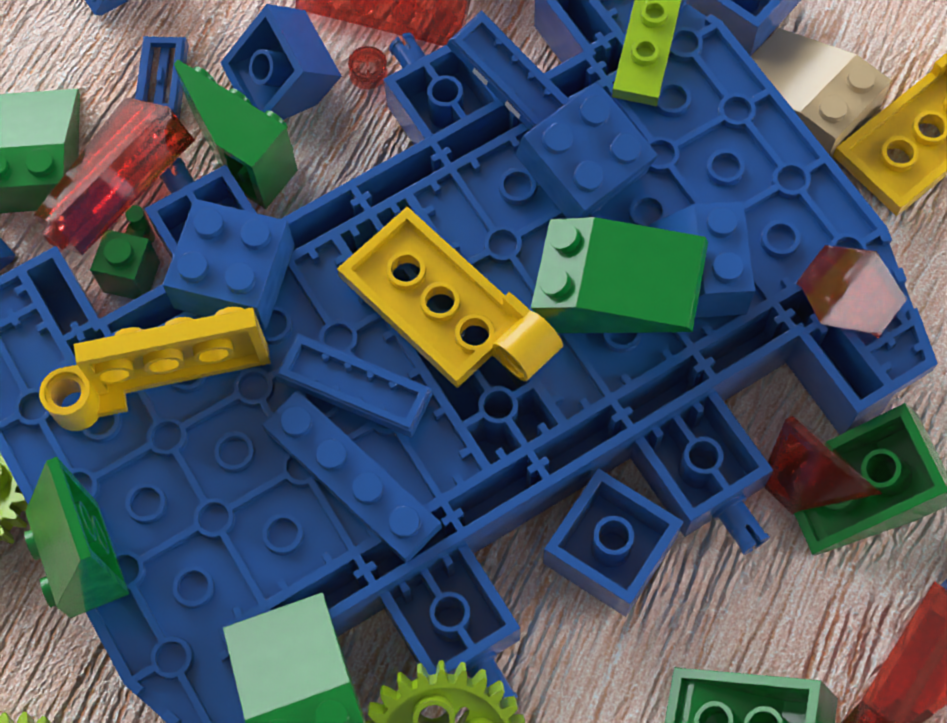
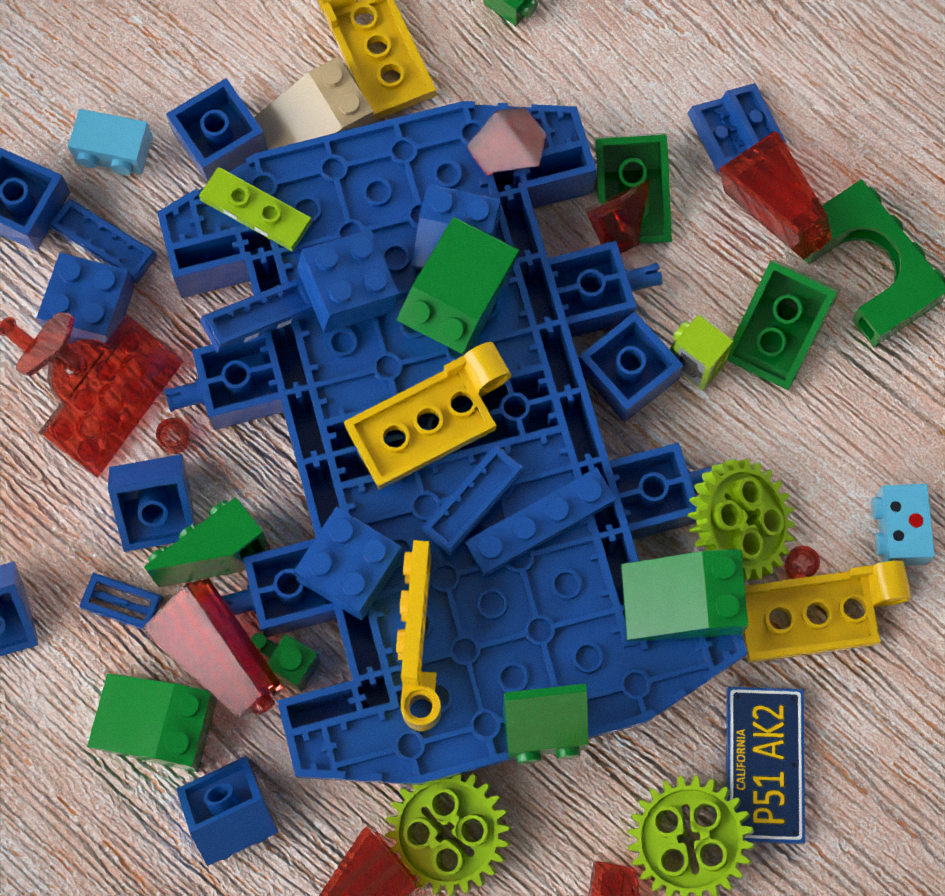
camera: 75 degrees left, 5 degrees up
(661, 624) = (701, 350): none -> lime brick

